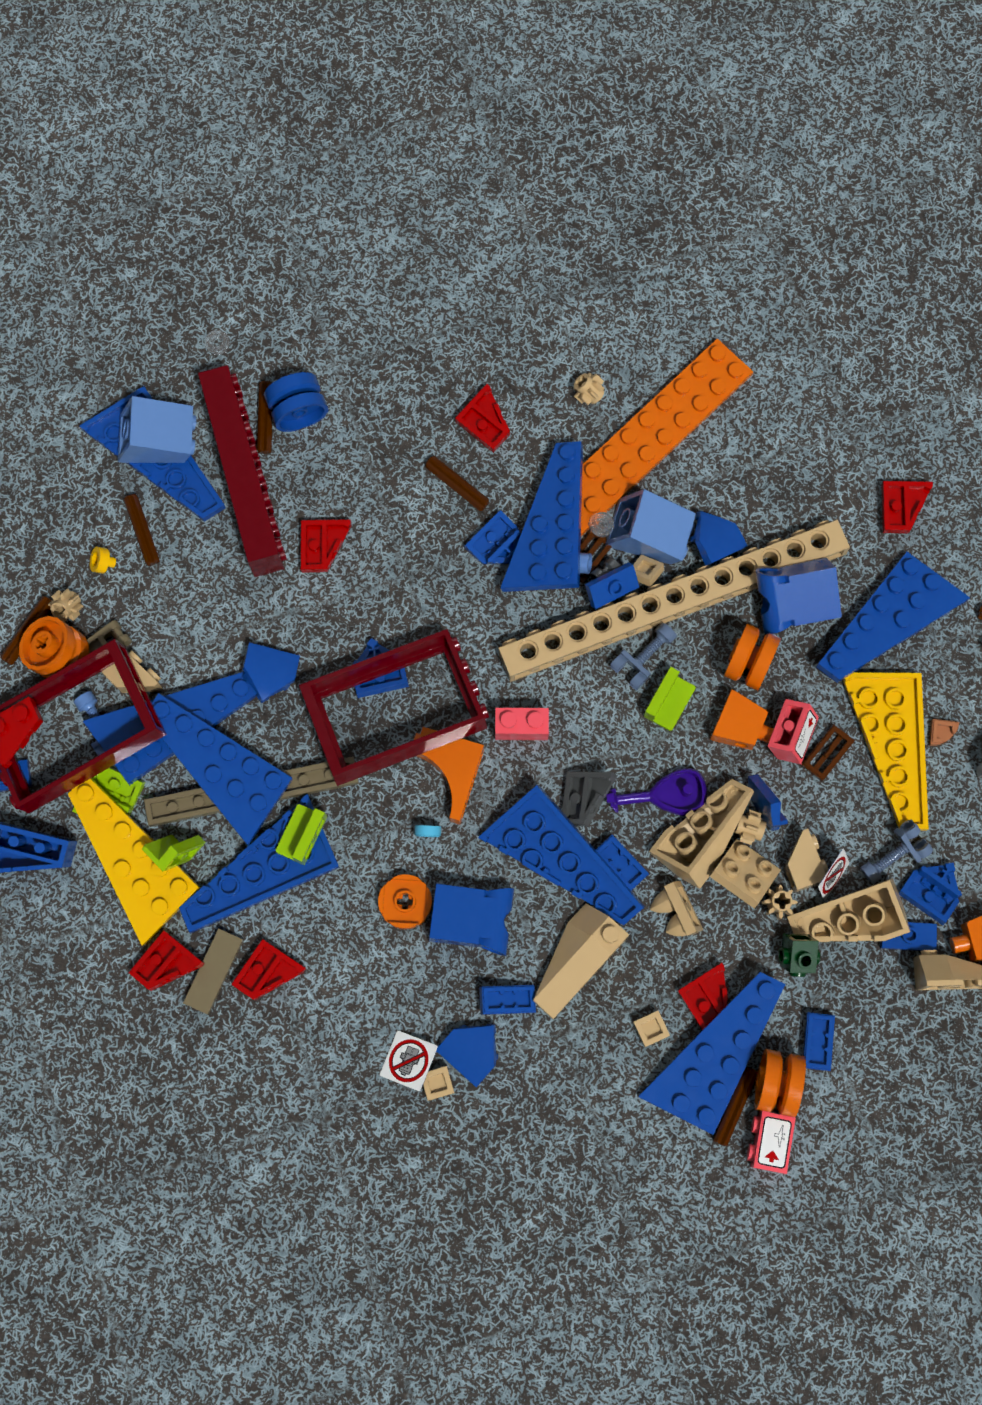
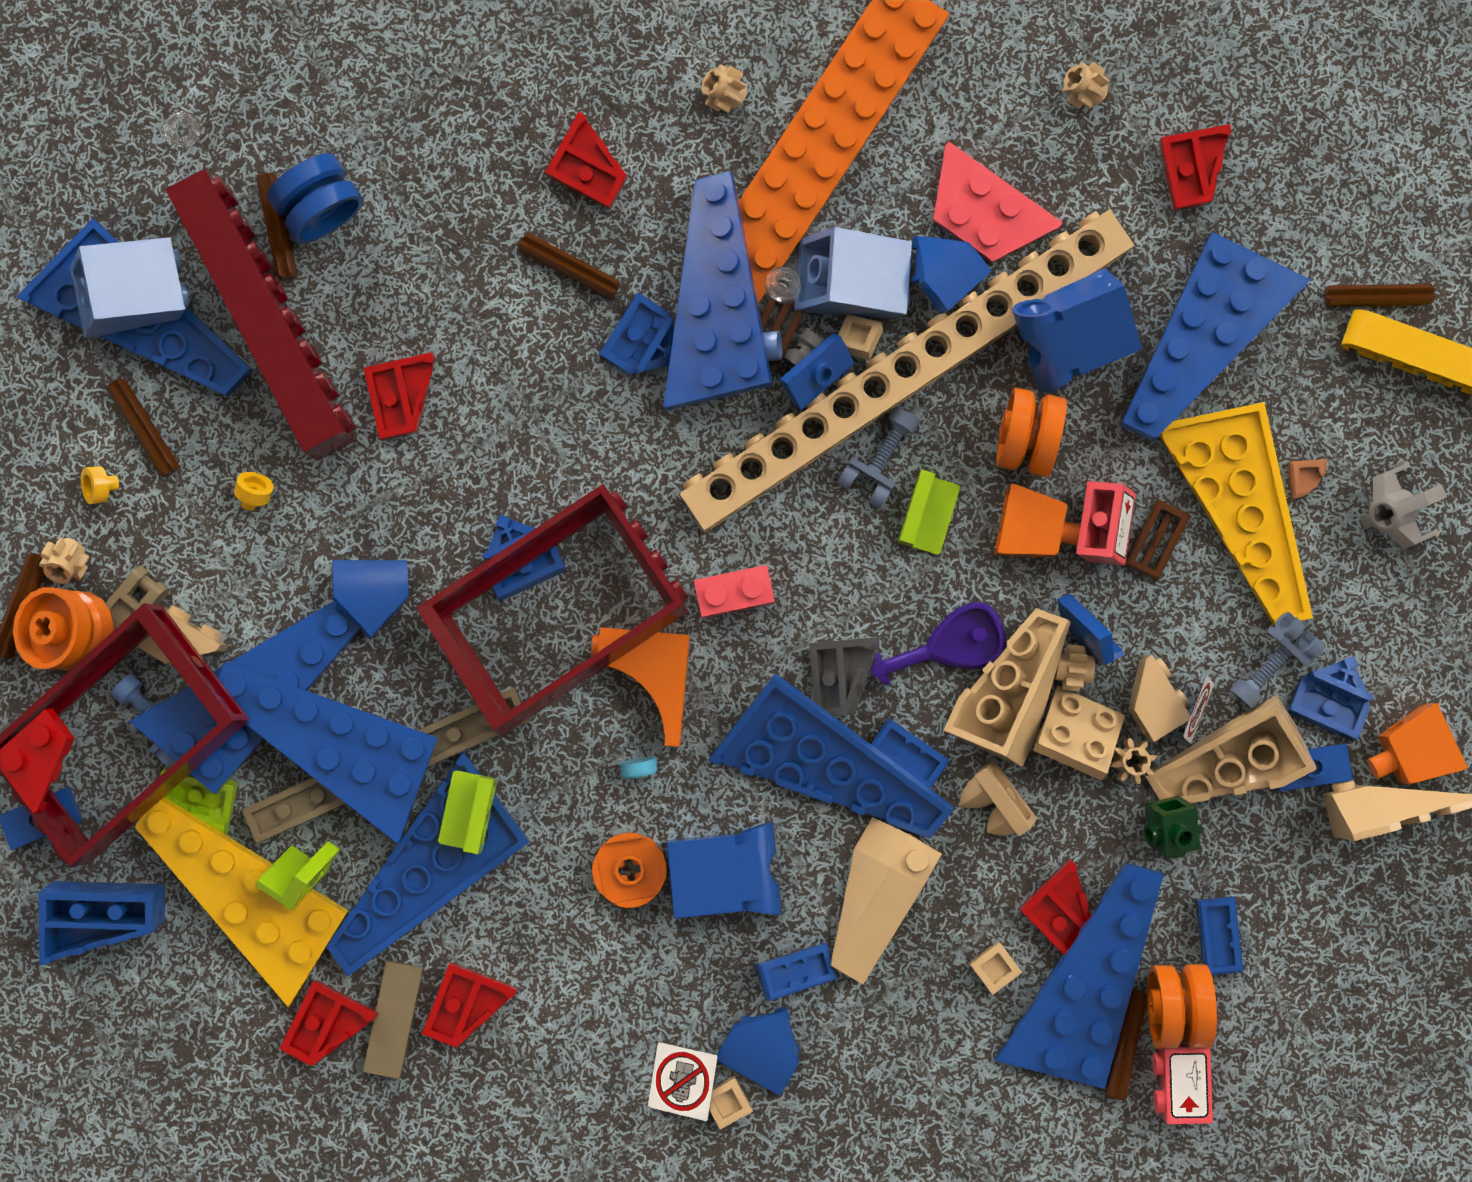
camera: 15 degrees left, 10 degrees up
(205, 586) = (253, 490): none -> yellow tile
(752, 504) = (985, 209): none -> coral wing
(837, 436) = (1086, 85): none -> tan gear

